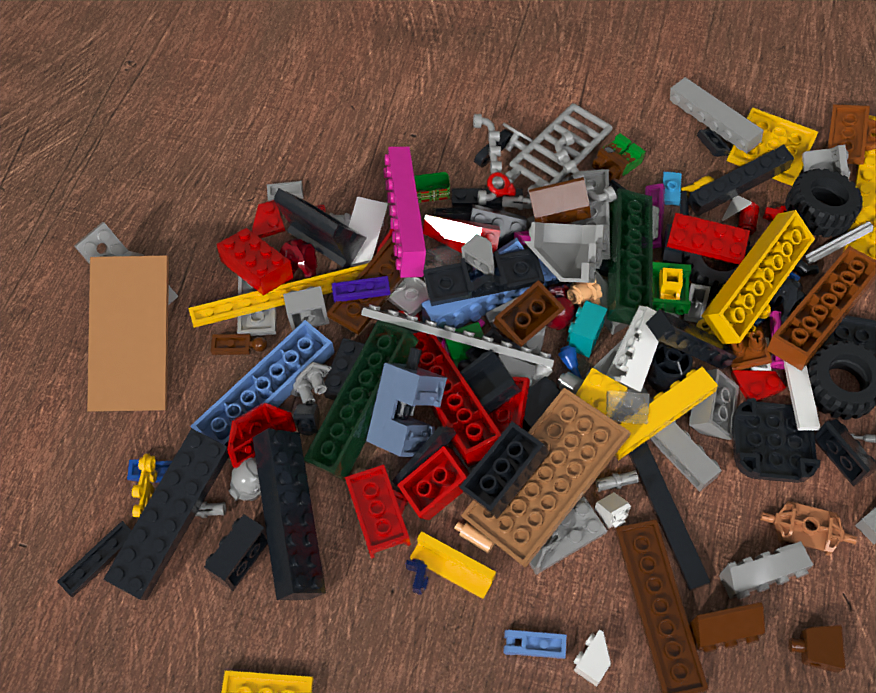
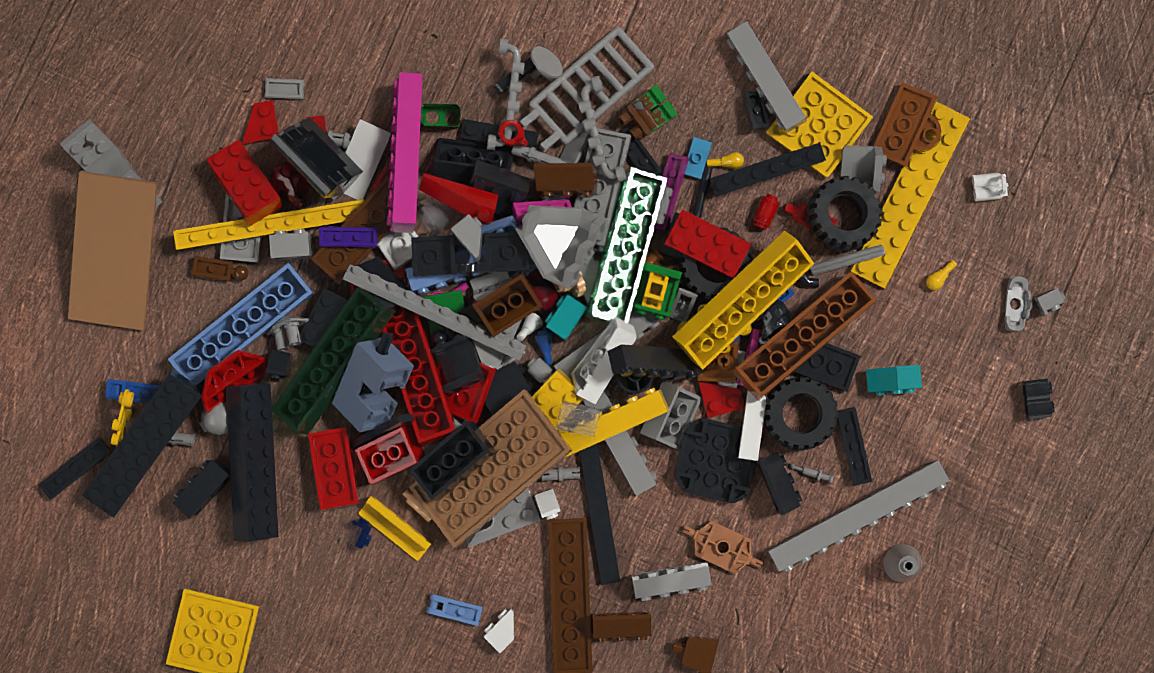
camera: 10 degrees right, 25 degrees up
(554, 342) = (531, 324): none -> white cone
(736, 205) = (757, 196): white sticker -> none

